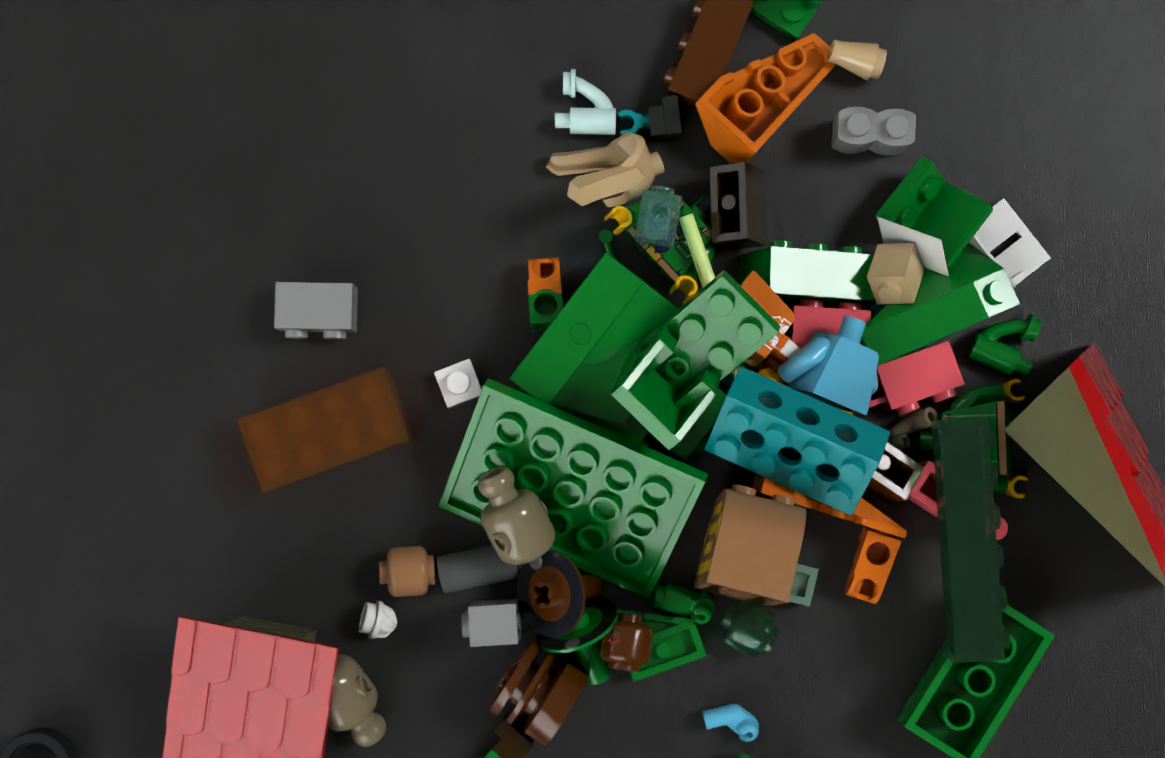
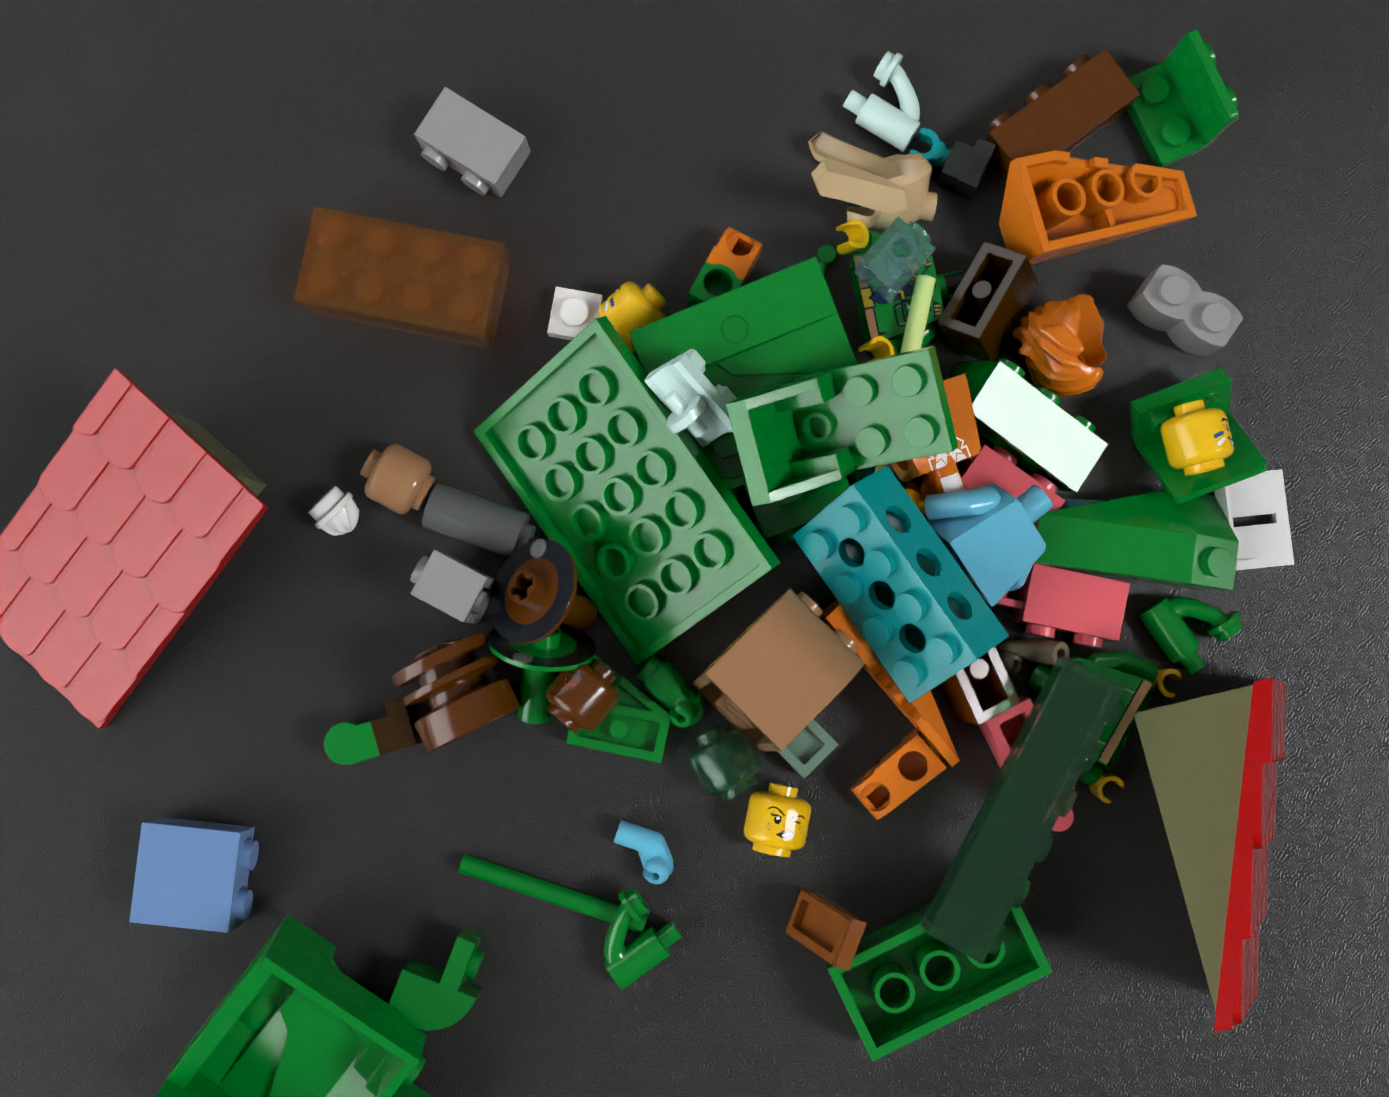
camera: 30 degrees right, 0 degrees up
(354, 704) = (254, 580): dark tan piece -> none
(499, 358) = (632, 308): none -> yellow head
(514, 518) = (542, 488): dark tan piece -> none
(580, 399) = (692, 398): none -> light aqua hips
(806, 204) = (1063, 345): none -> orange hair
(808, 646) = (777, 820): none -> yellow head
(859, 58) = (1215, 224): tan cone -> none
(886, 699) = (826, 928): none -> dark orange tile
(895, 273) = (1116, 475): tan brick -> none
(928, 247) = (1154, 458): white sticker -> none
(935, 215) = (1197, 438): none -> yellow head

